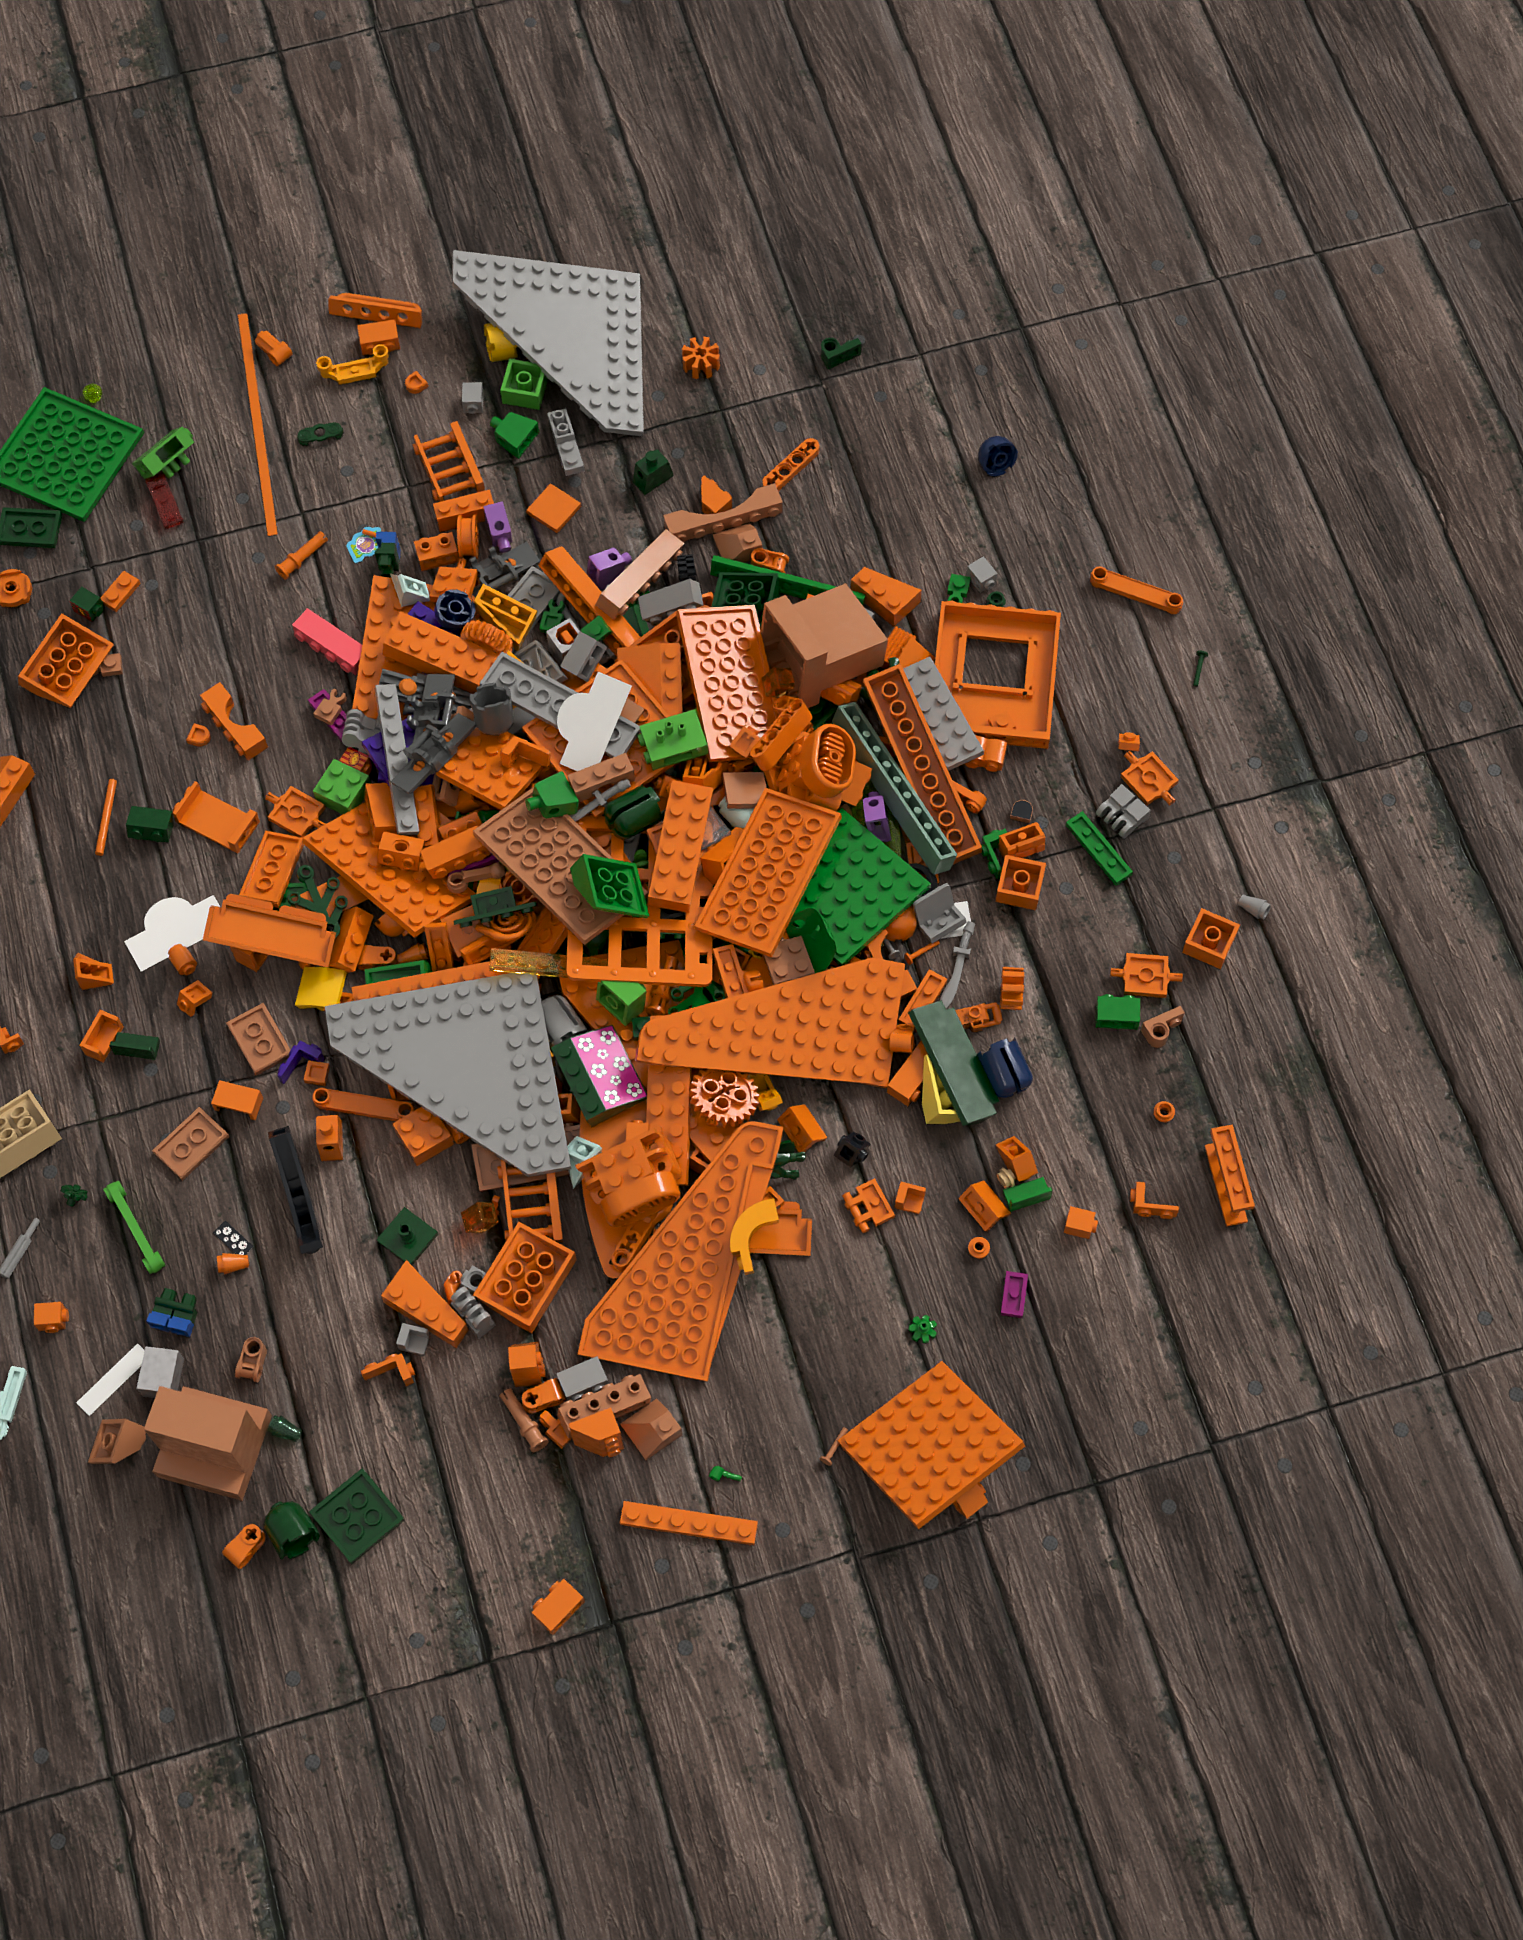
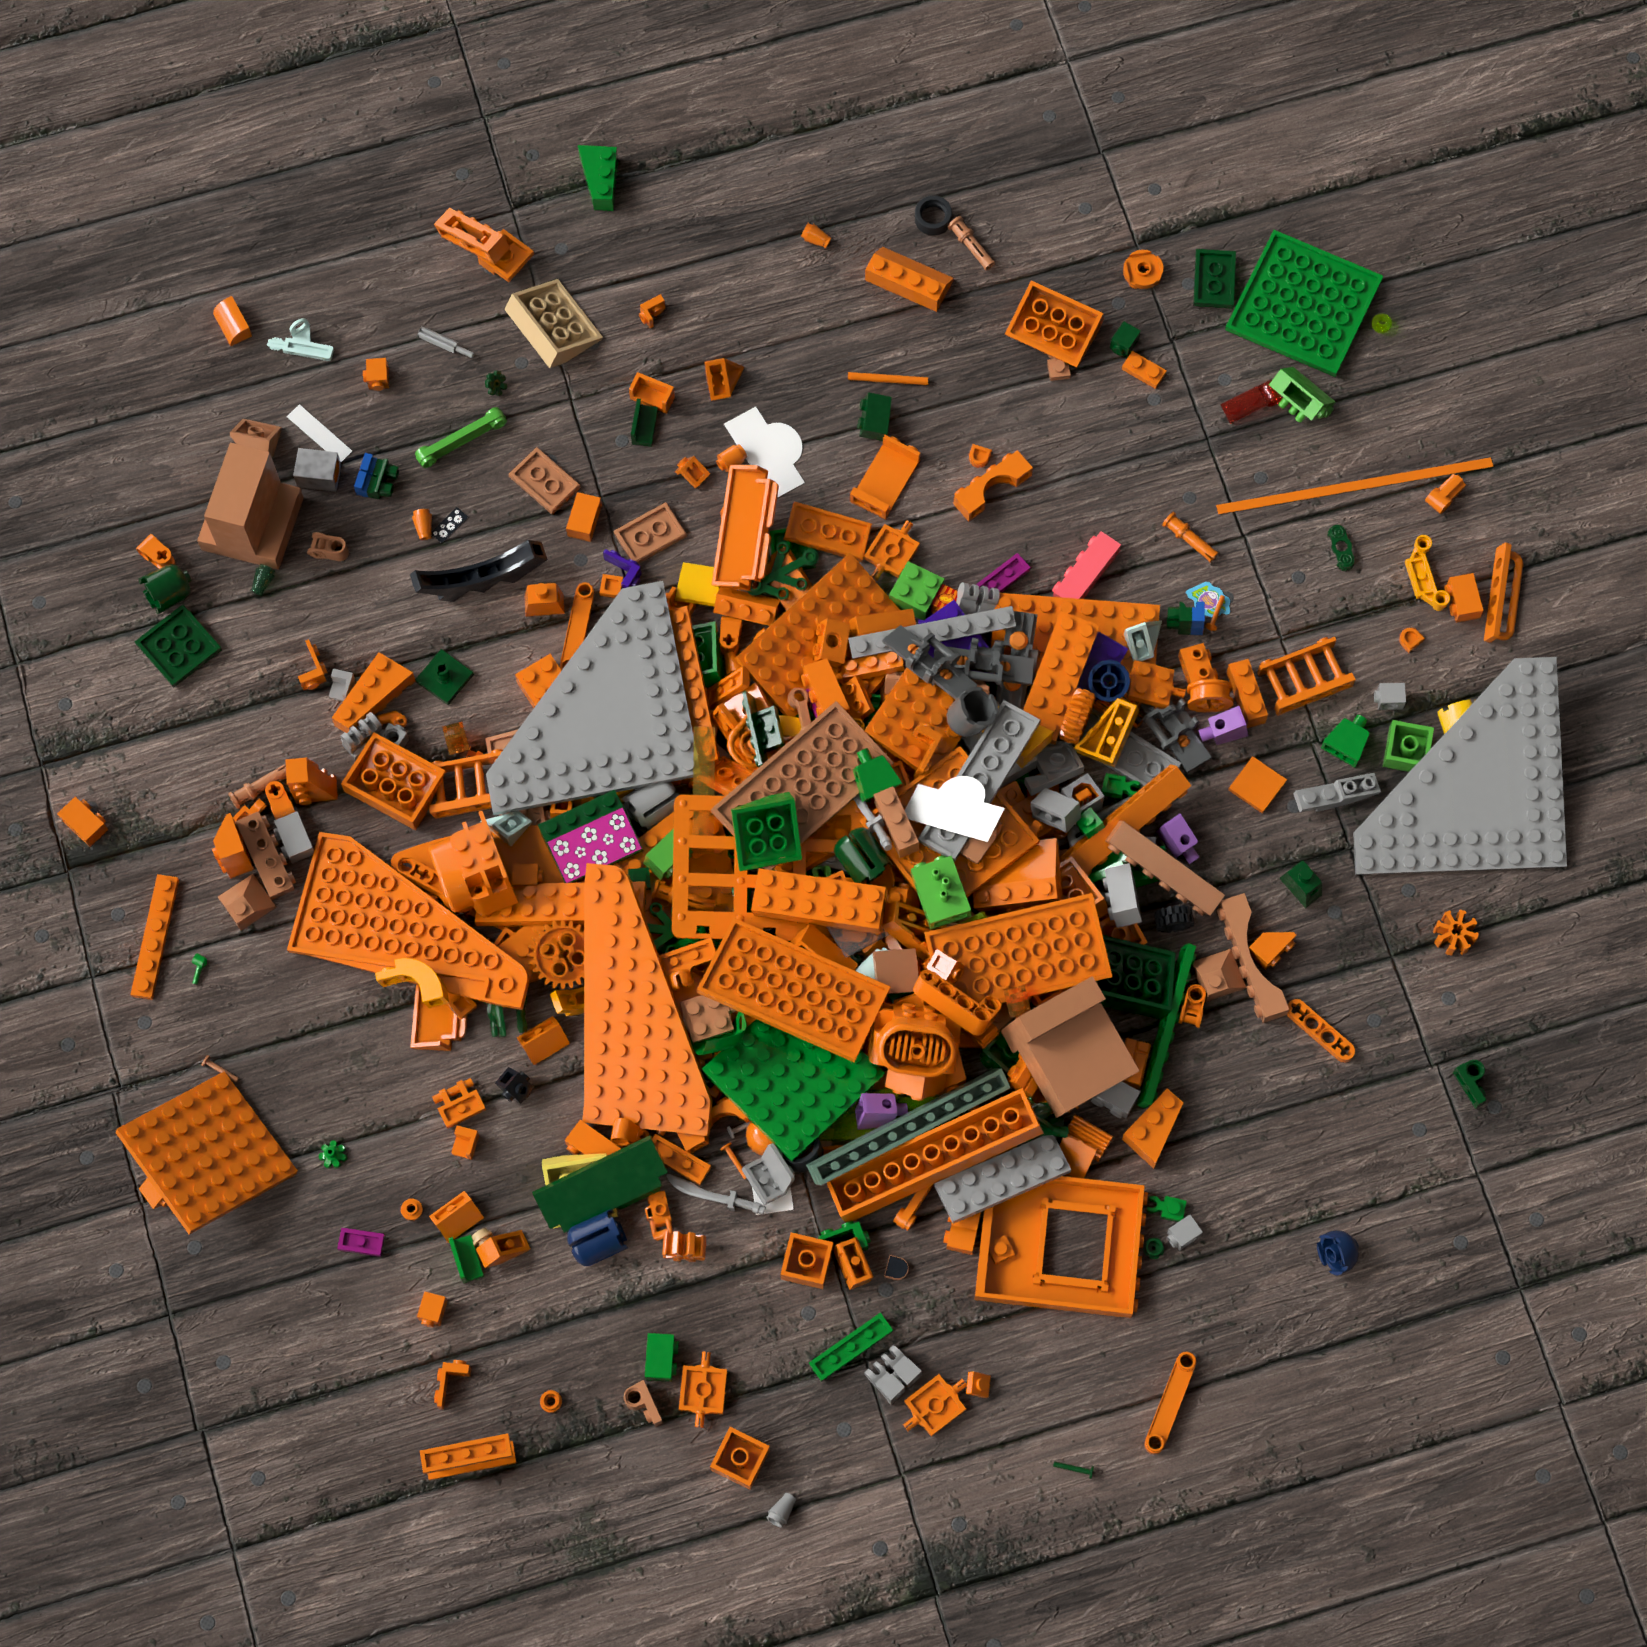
camera: 90 degrees right, 5 degrees up
(330, 709) = (1004, 572): nougat plate -> none

